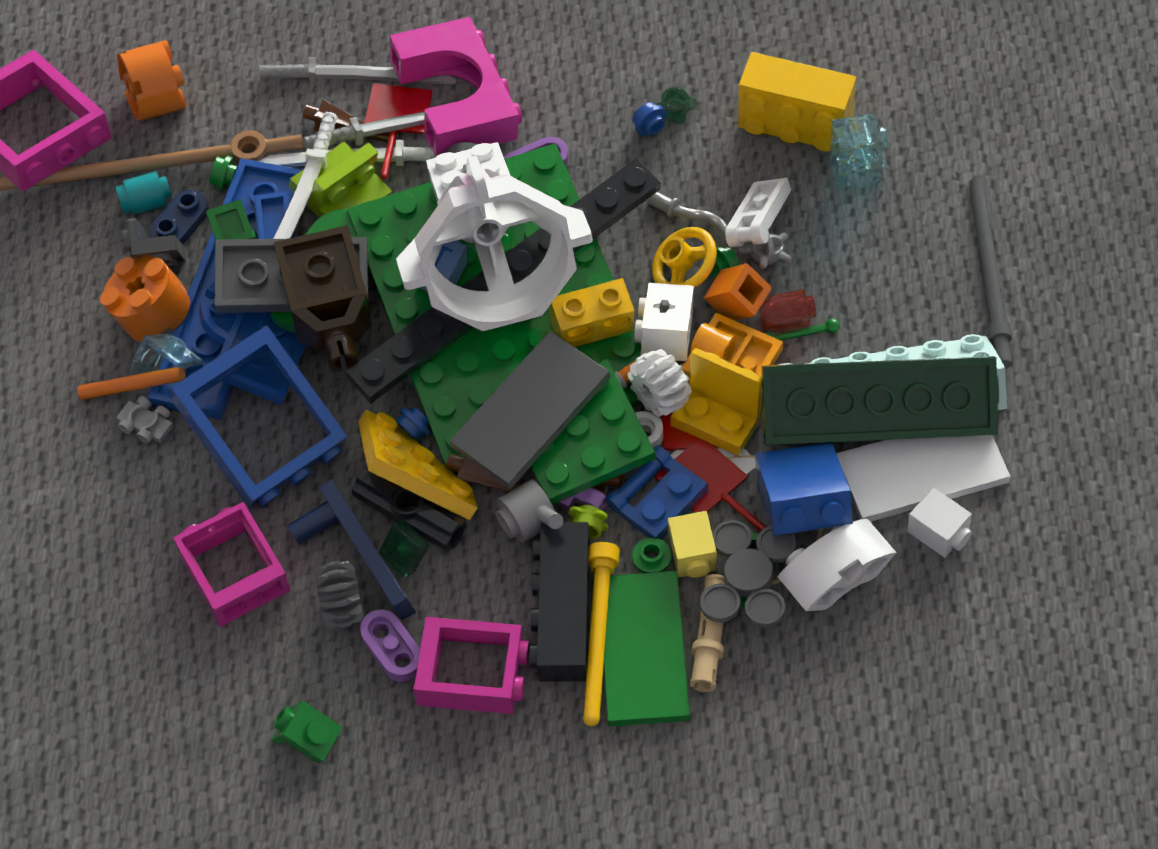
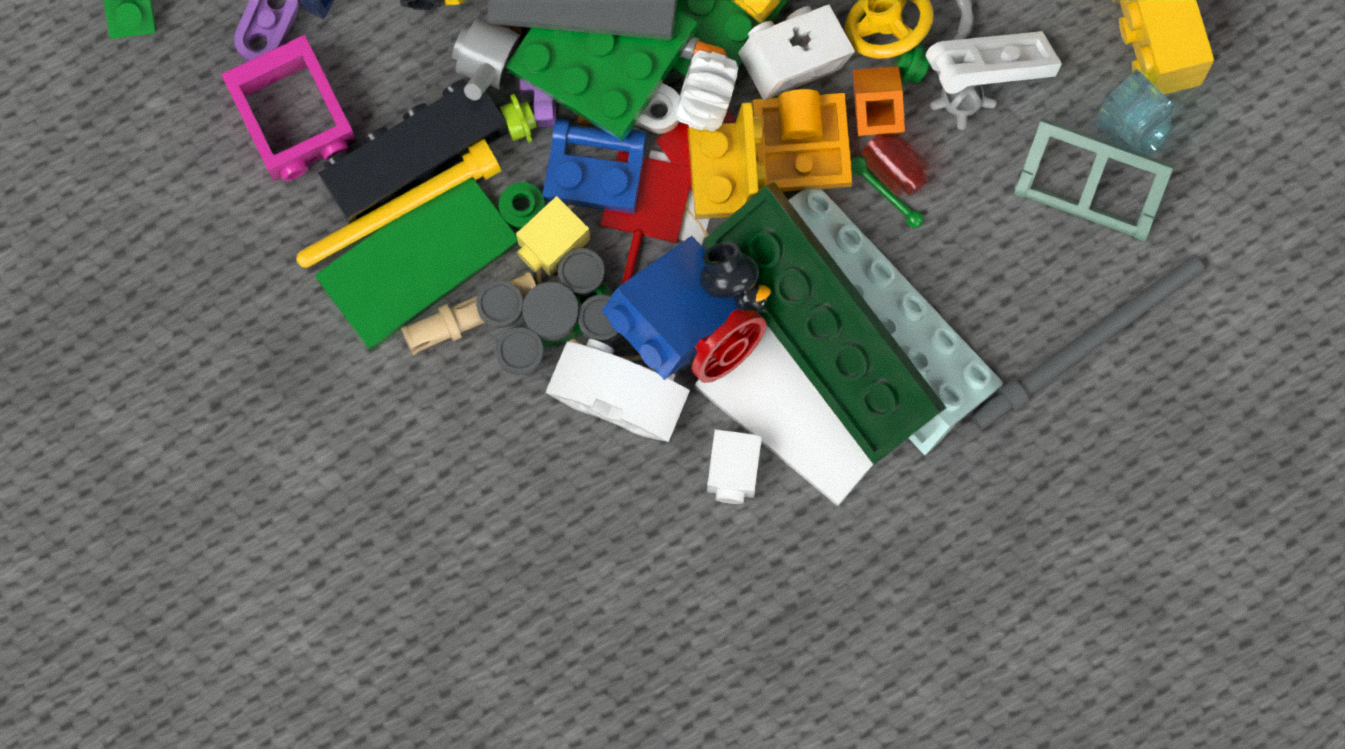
camera: 55 degrees right, 20 degrees up
(809, 432) = (733, 274): none -> black animal
(855, 467) = (728, 345): none -> red wheel
(893, 225) = (1104, 149): none -> window

